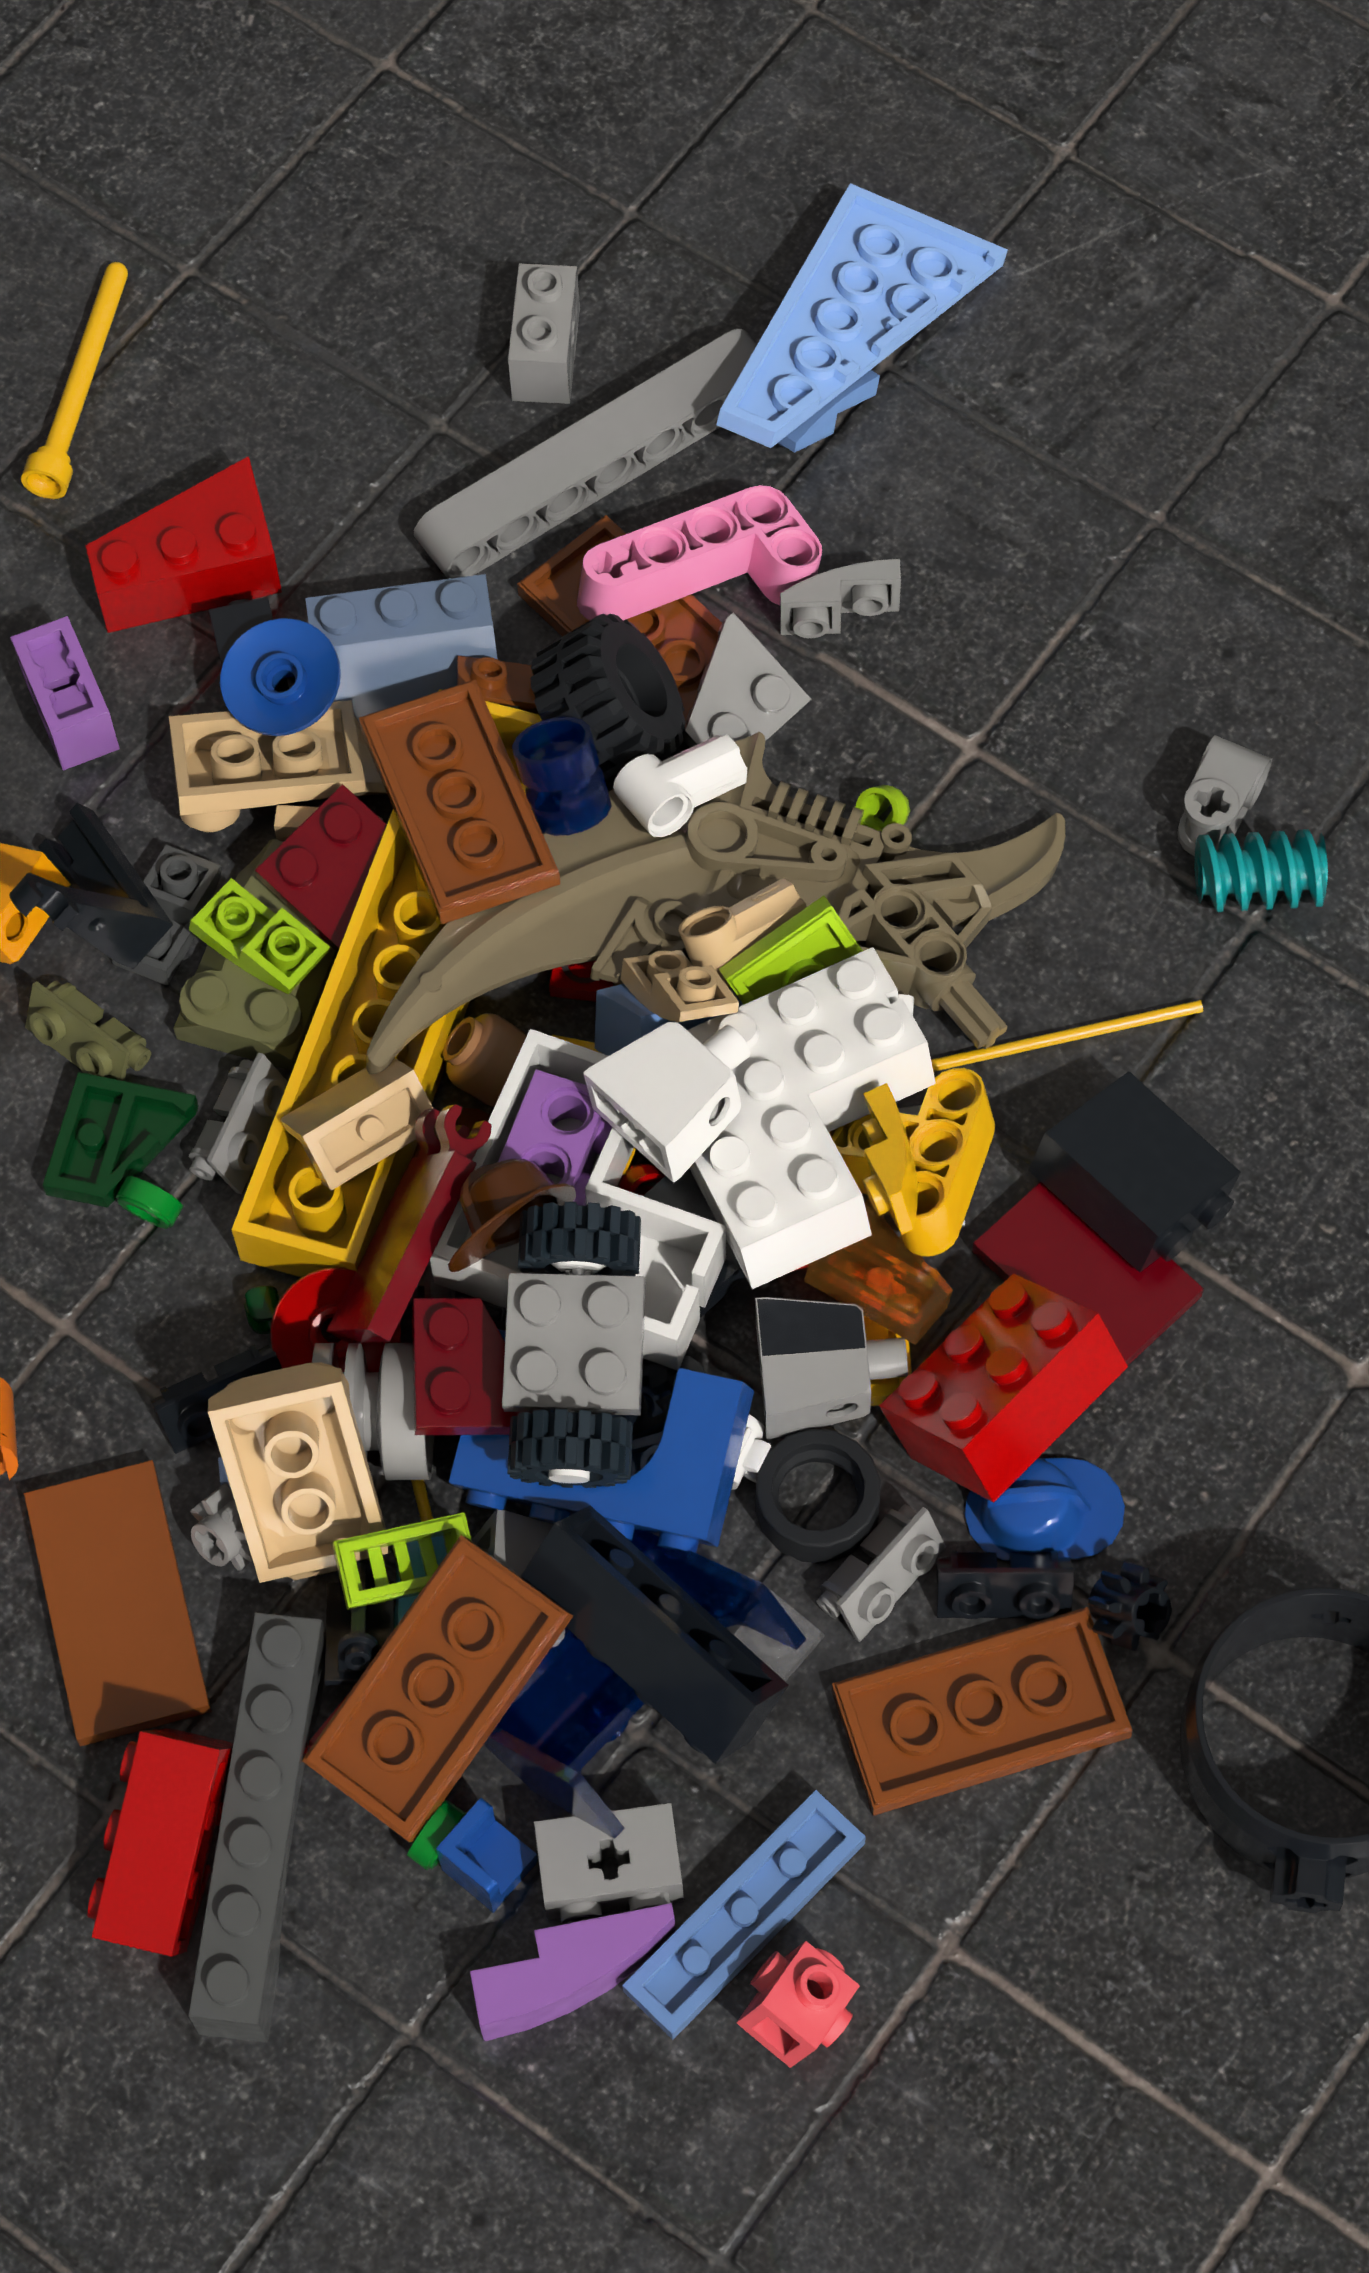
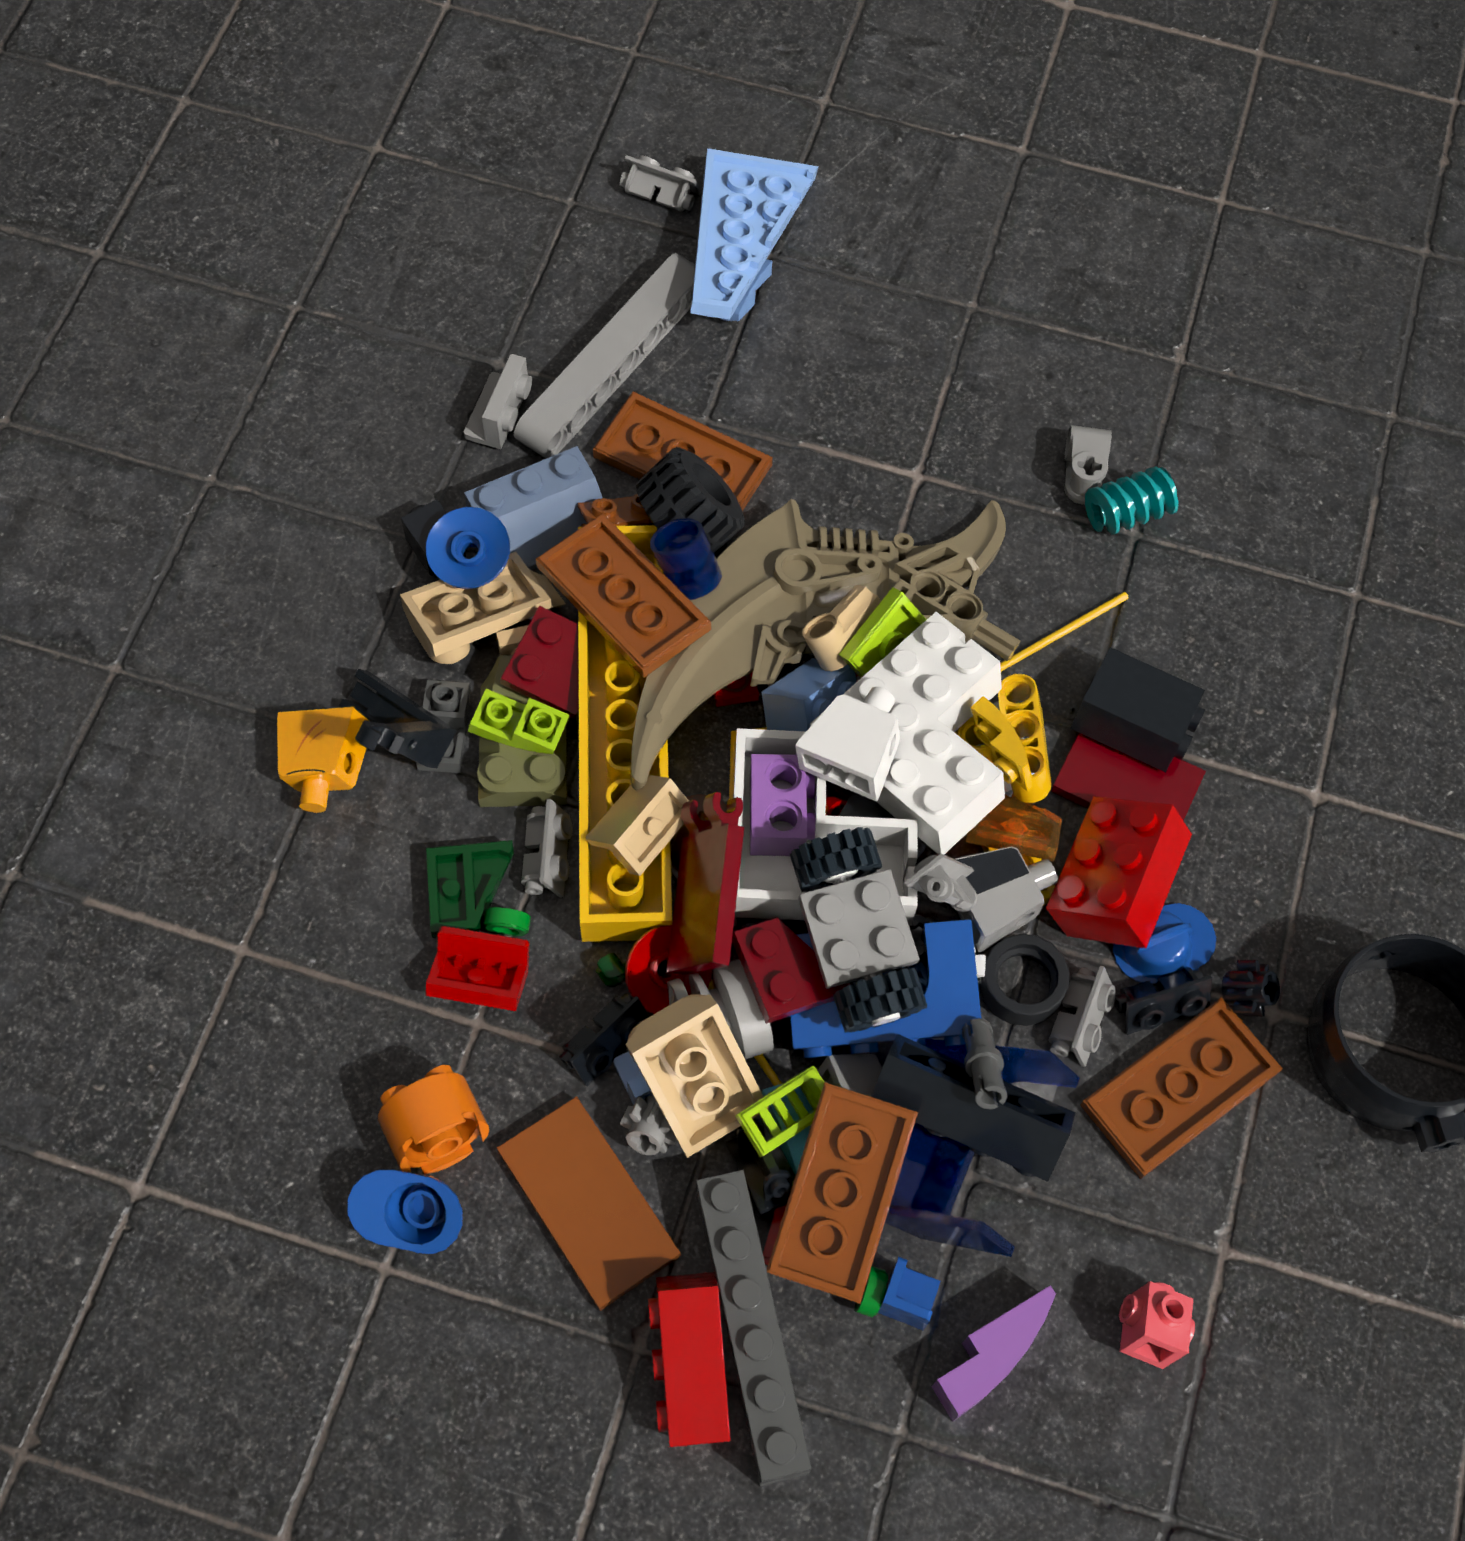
camera: 25 degrees left, 0 degrees up
(49, 468) = (251, 457): yellow piece -> none
(65, 693) = (322, 598): medium lavender brick -> none
(67, 1021) = (405, 819): olive hinge -> none
(88, 1253) = (479, 968): none -> red bracket
(187, 554) = (370, 486): red wedge -> none
(410, 484) = (499, 404): none -> light grey bracket
(482, 1055) = (701, 758): medium nougat head -> none
(493, 1204) = (770, 845): reddish brown piece -> none
(544, 333) = (550, 287): light grey brick -> none
(572, 1864) = (972, 1294): light grey brick -> none
(668, 790) = (757, 550): white piece -> none
(676, 988) = (818, 677): tan slope -> none
(679, 1576) = (984, 1063): none -> dark grey pin
(698, 549) = (726, 379): bright pink beam -> none
(726, 1320) = (944, 881): none -> light grey hinge
(742, 690) = (765, 478): light grey wing -> none
(744, 1914) = (1091, 1276): medium blue plate -> none
(748, 202) = (674, 185): none -> light grey hinge
(860, 588) = (792, 410): light grey slope -> none
(877, 800) = (877, 521): lime hinge -> none

